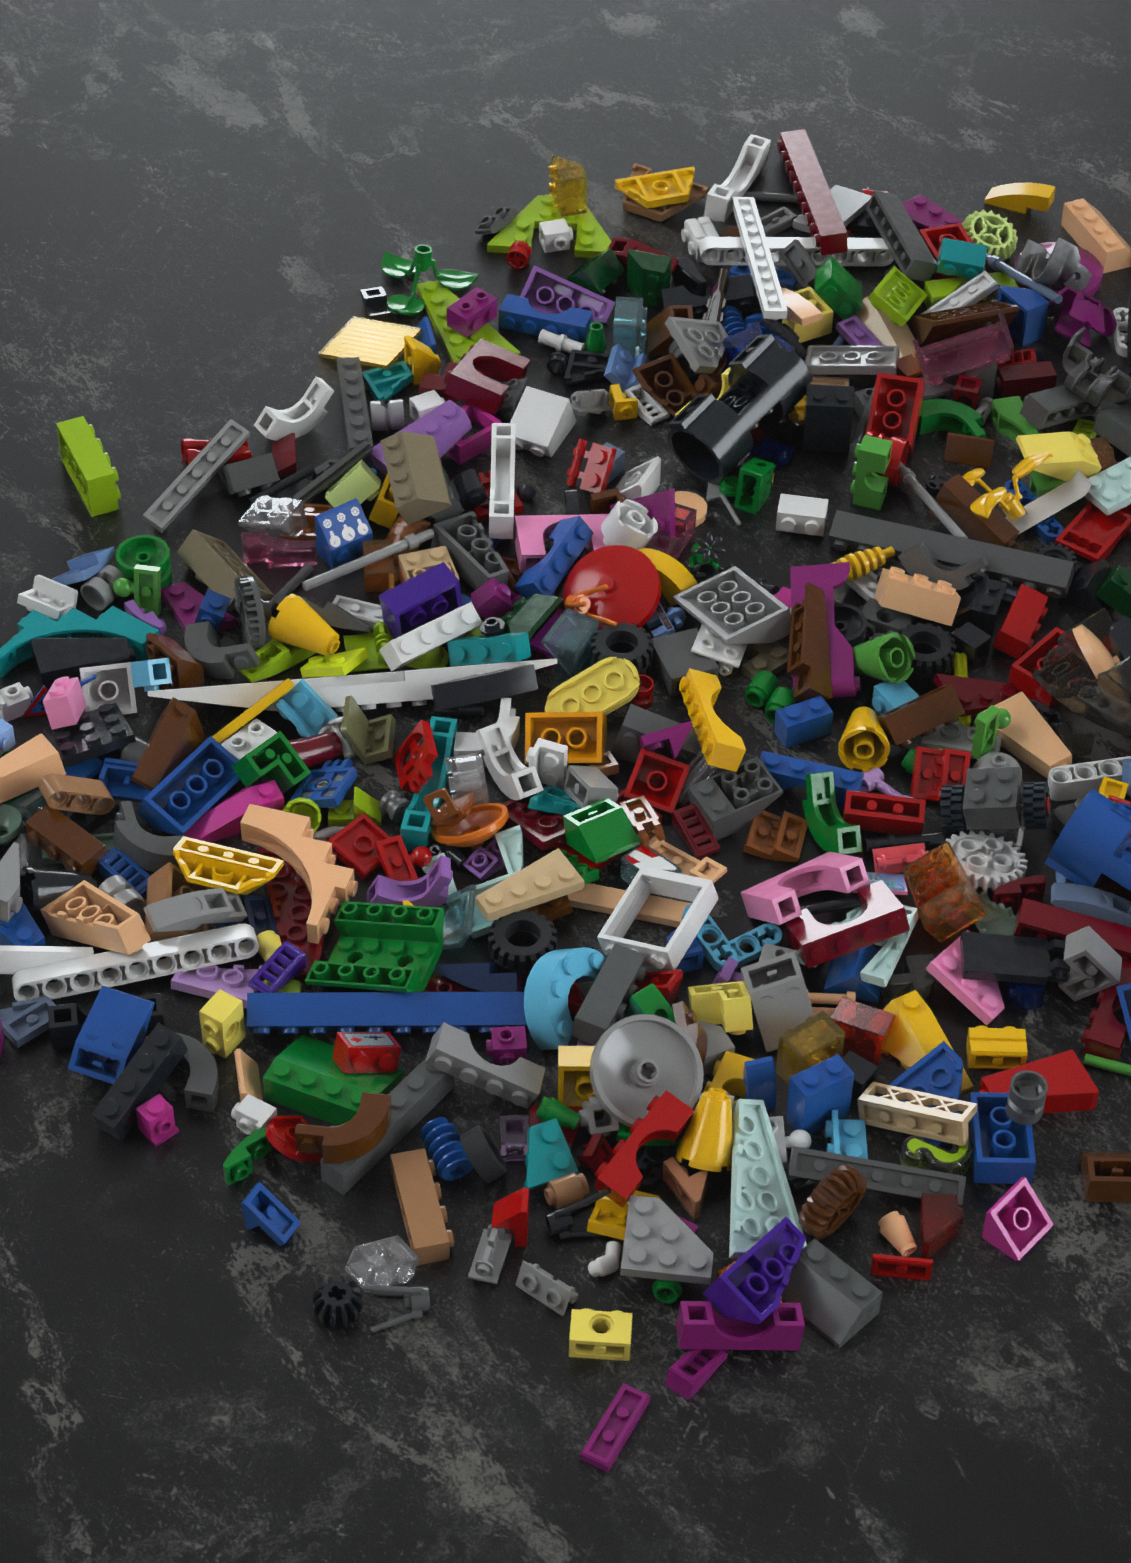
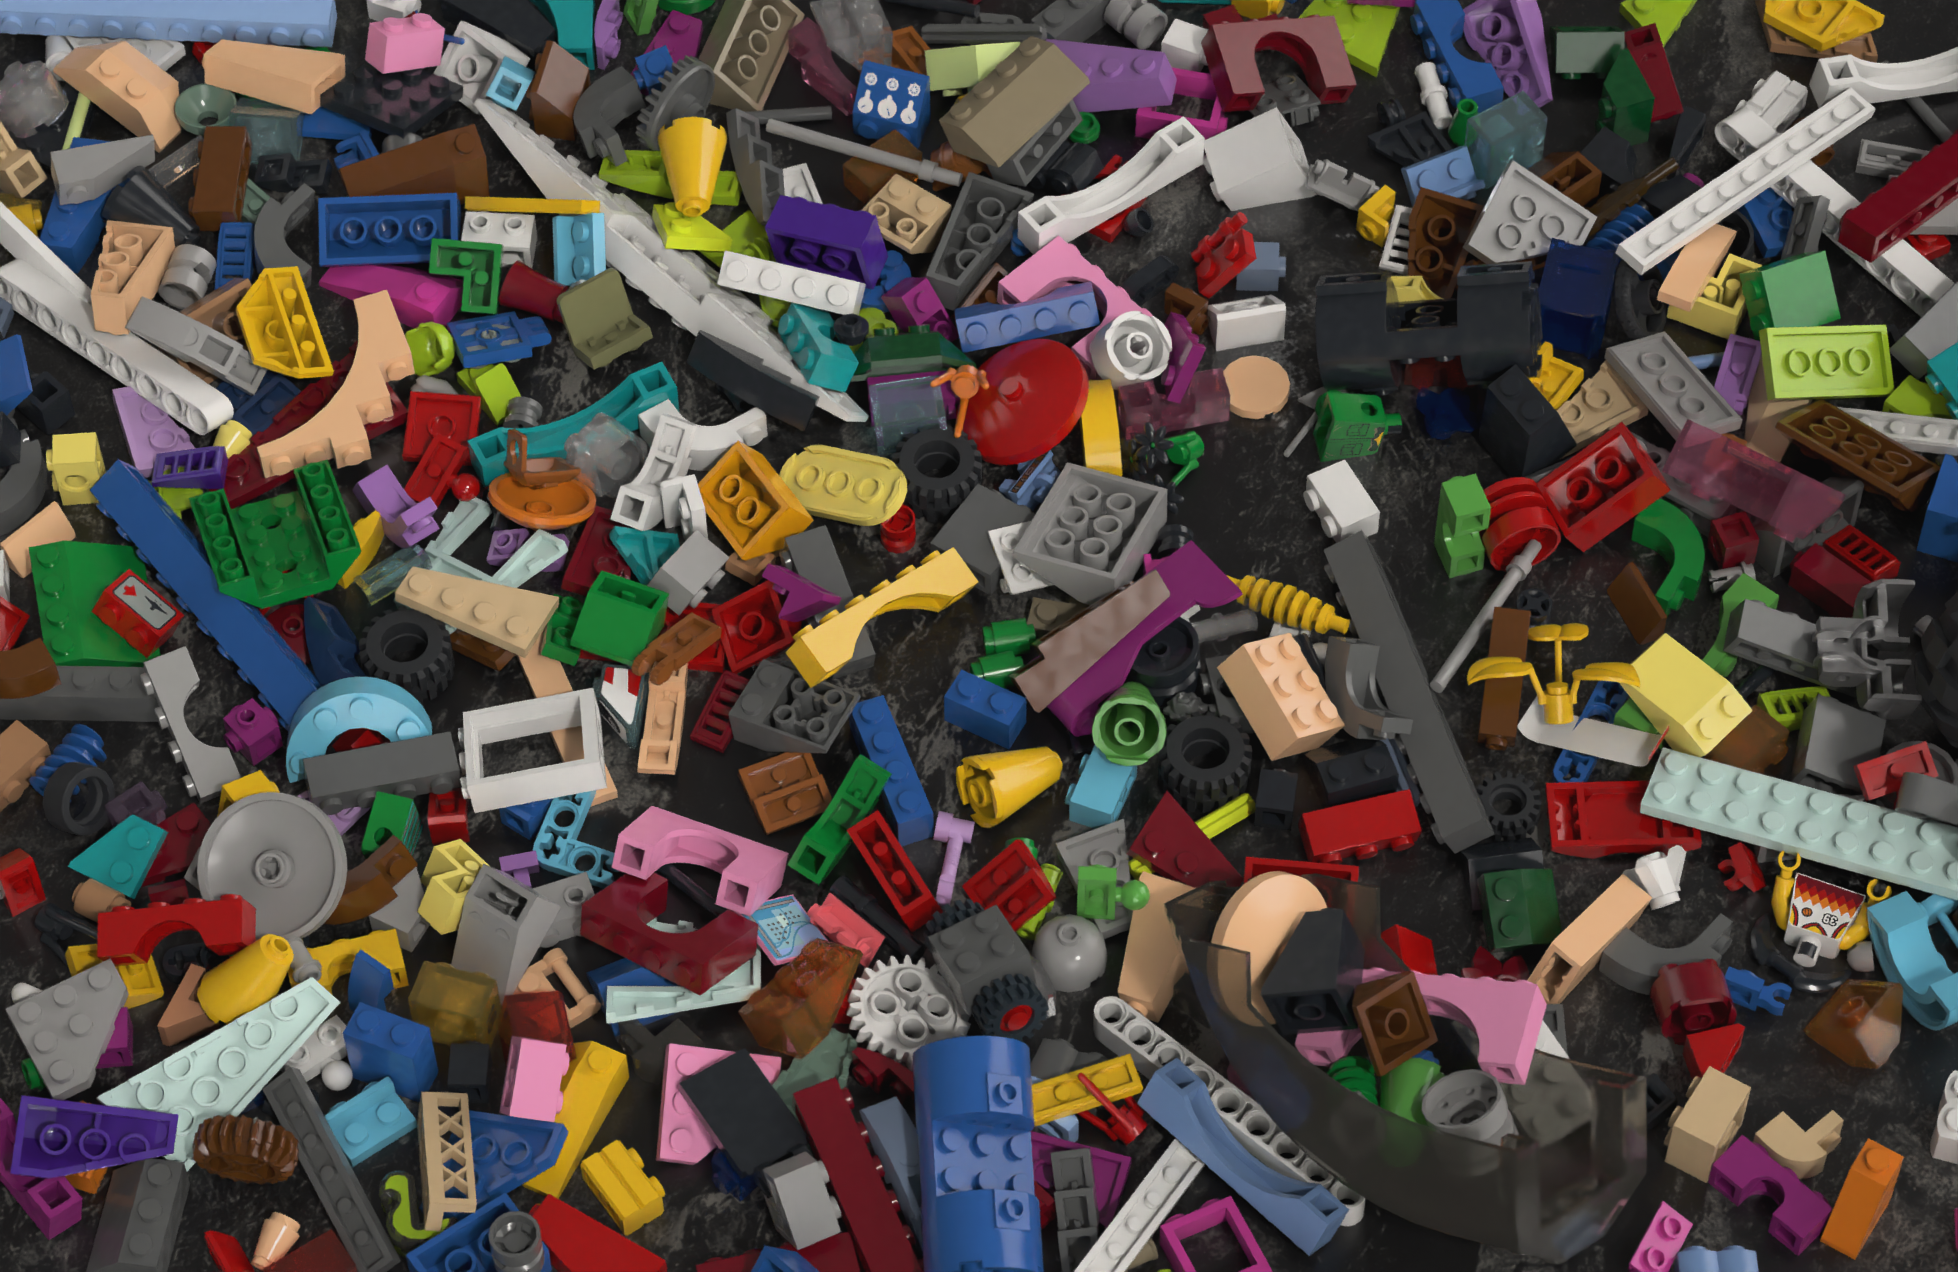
camera: 55 degrees right, 10 degrees up
(76, 794) = (280, 140): medium nougat beam -> none
(426, 756) = (594, 390): red piece -> none
(552, 1108) = (183, 827): green cone -> none
(903, 1035) = (534, 1079): none -> bright pink brick
(921, 715) = (1076, 814): reddish brown brick -> none

